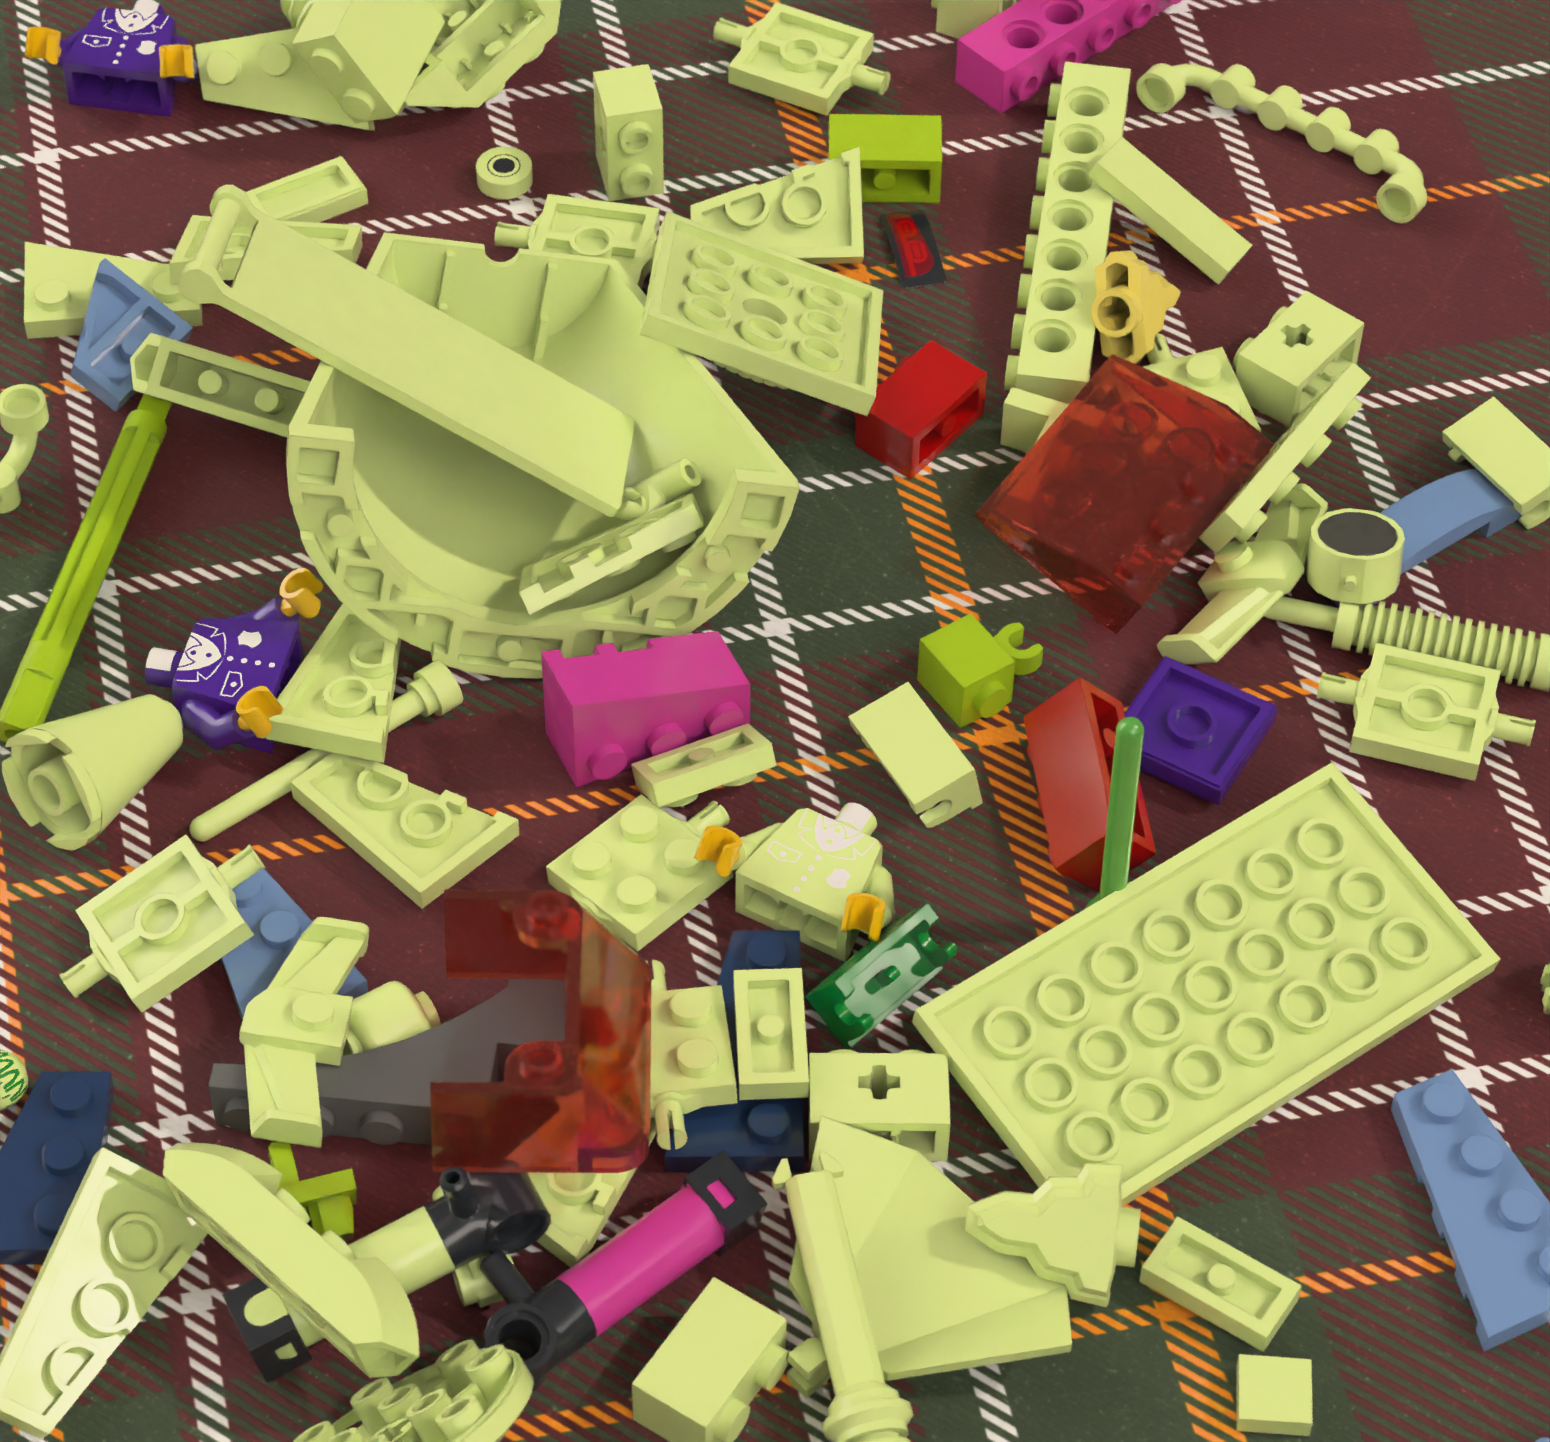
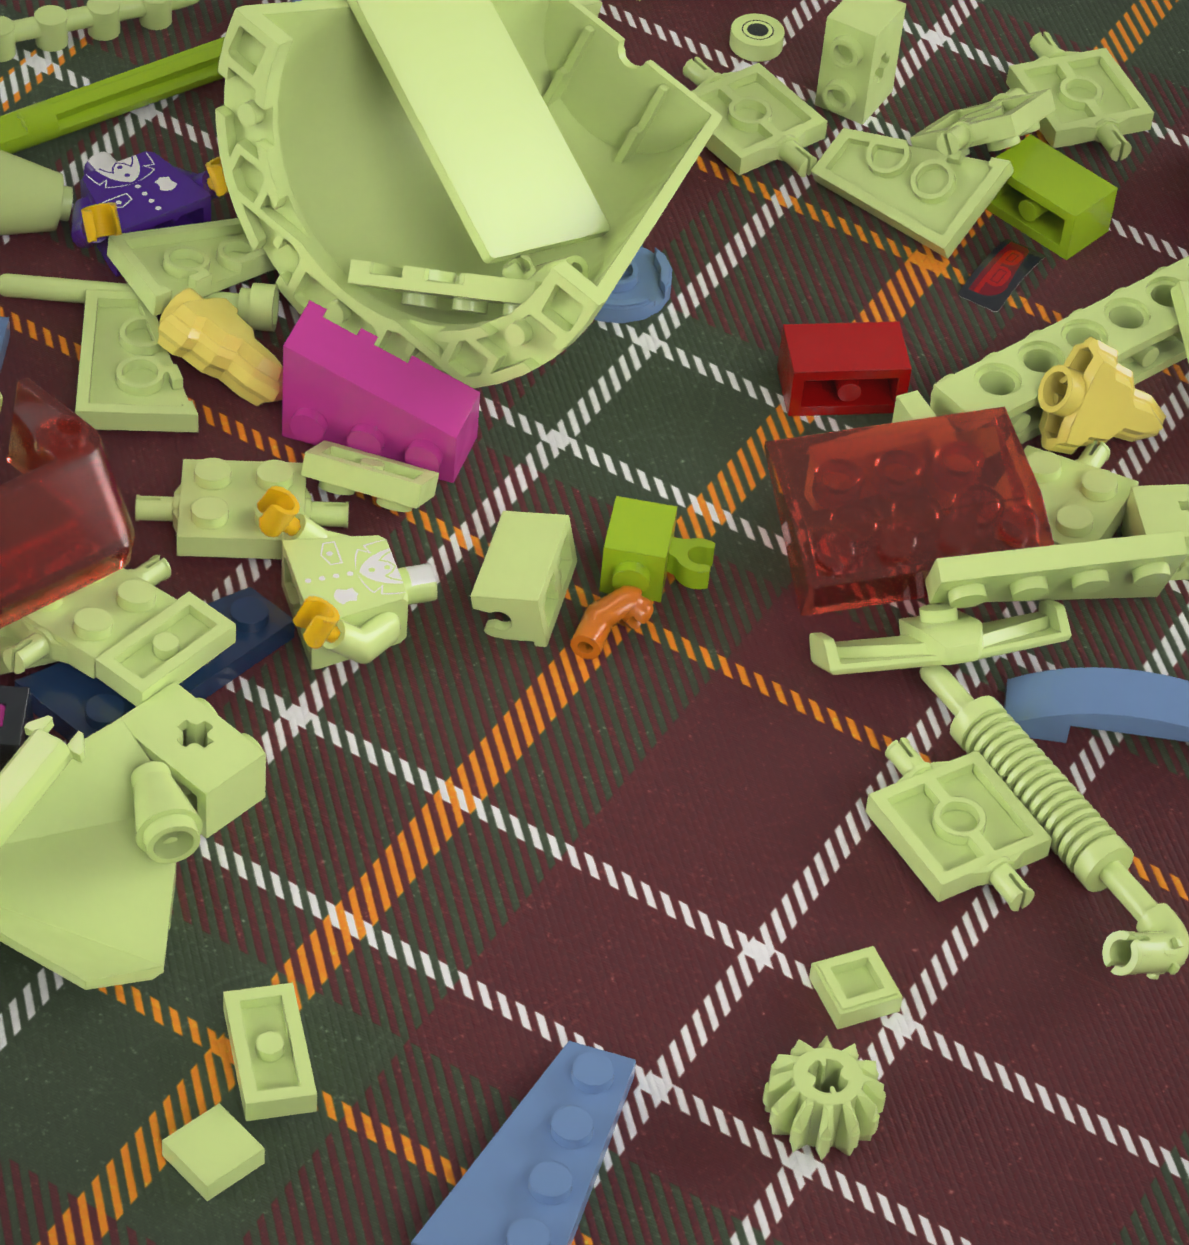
camera: 40 degrees right, 5 degrees down
(462, 746) = (220, 345): none -> light yellow rock
(764, 314) = (779, 166): yellowish green piece -> none
(787, 128) = (990, 123): none -> yellowish green plate
(880, 976) = (301, 682): green hinge -> none
(935, 1165) = (164, 818): none -> yellowish green cone
(999, 745) = (600, 616): none -> orange arm
(1065, 1229) = (198, 924): yellowish green rock -> none
(1072, 763) = (614, 675): red brick -> none
(1121, 807) = (525, 775): bright green piece -> none
(1198, 729) = (757, 706): dark purple plate -> none
(1207, 990) = (516, 868): yellowish green plate -> none
(1355, 556) = (1024, 671): yellowish green piece -> none
(1503, 890) = (855, 987): none -> yellowish green tile

